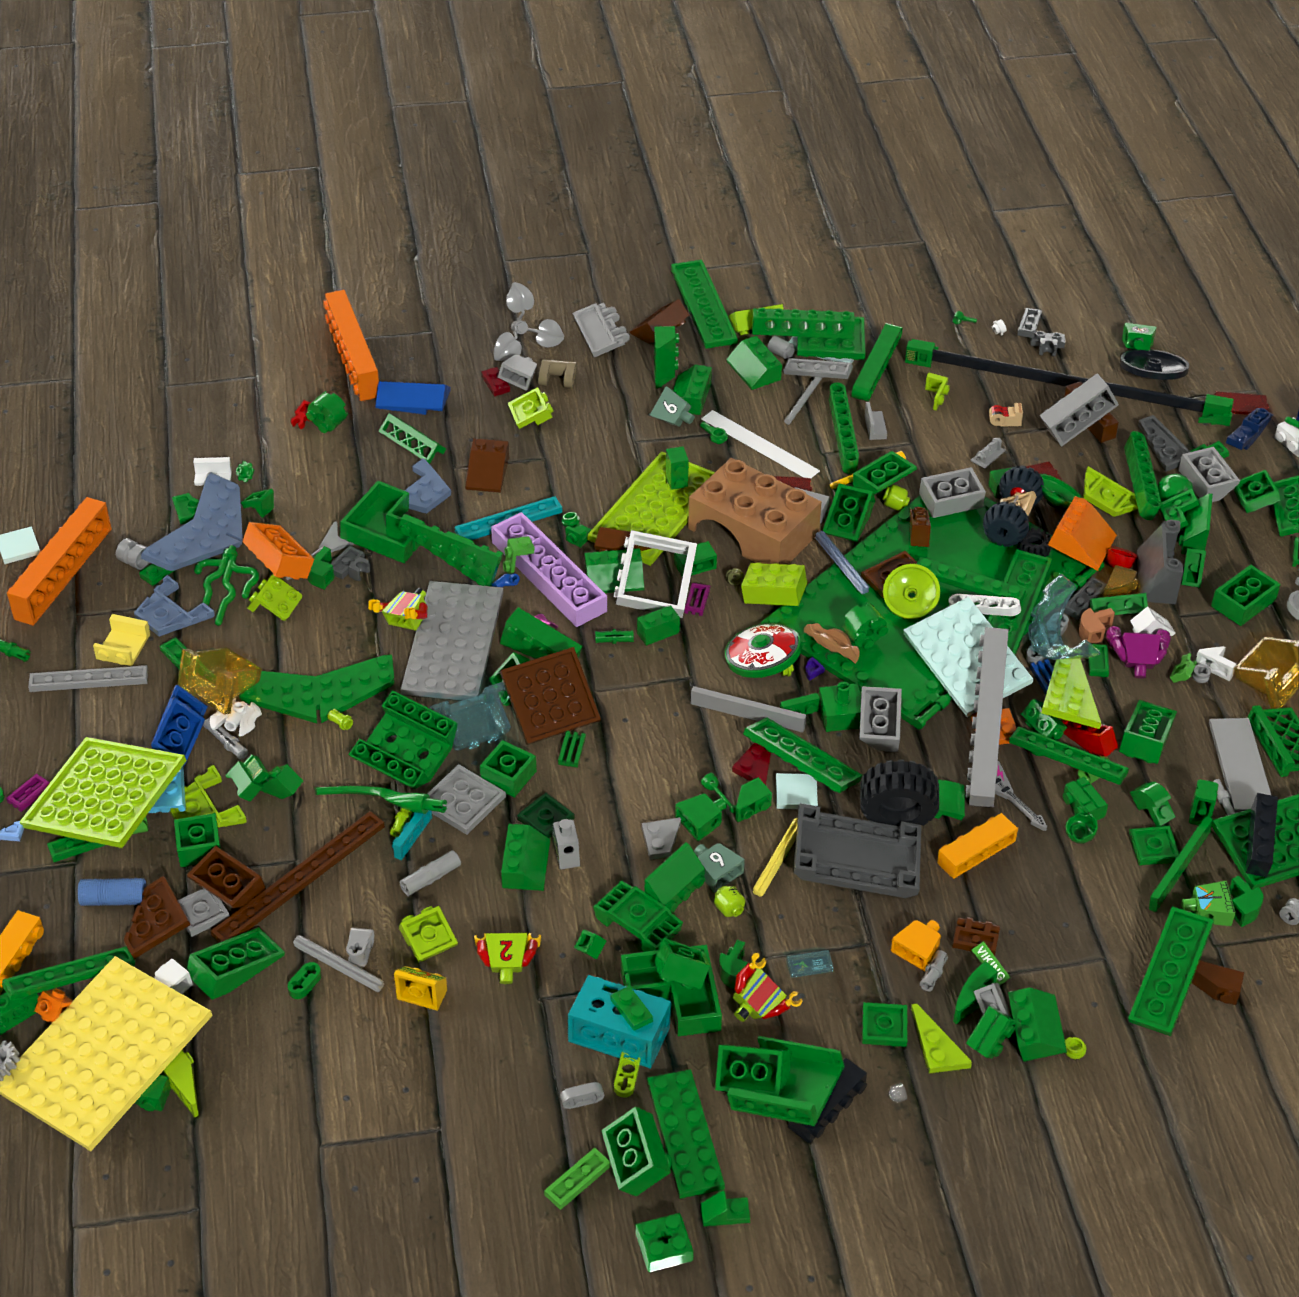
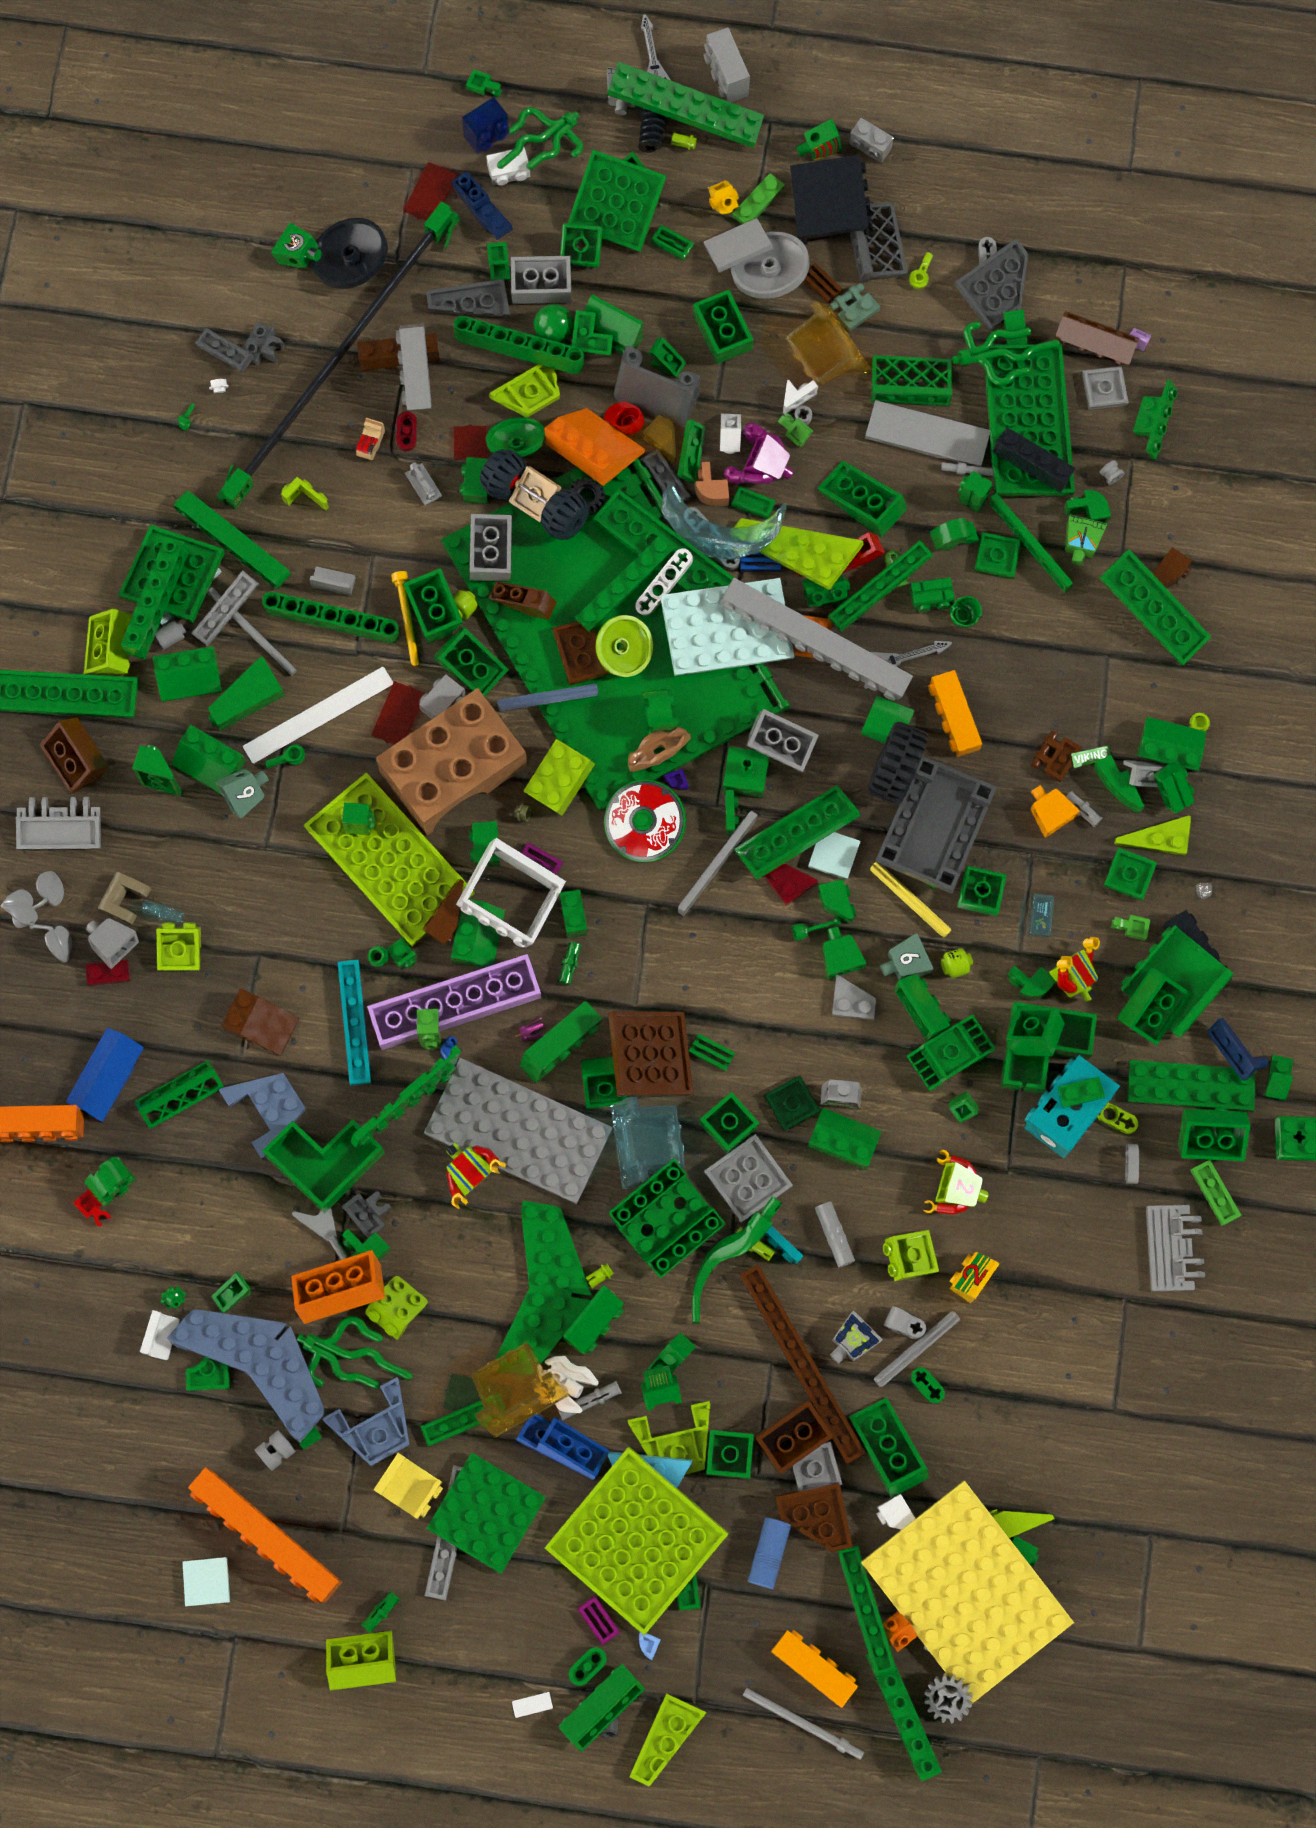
camera: 75 degrees left, 30 degrees up
(109, 694) = (486, 1513): none -> green plate
(297, 717) = (594, 1321): none -> green slope
(334, 909) = (854, 1339): none -> torso
(505, 1152) = (1168, 1248): none -> light grey hinge
(556, 395) = (162, 912): none -> clear light blue axle
(723, 1162) = (1234, 1050): none -> dark blue piece
(753, 397) = (248, 694): none -> green slope
(810, 905) = (991, 882): none -> green brick
(831, 1038) = (1135, 926): none -> bright green plate
(1026, 434) = (406, 432): none -> dark red plate

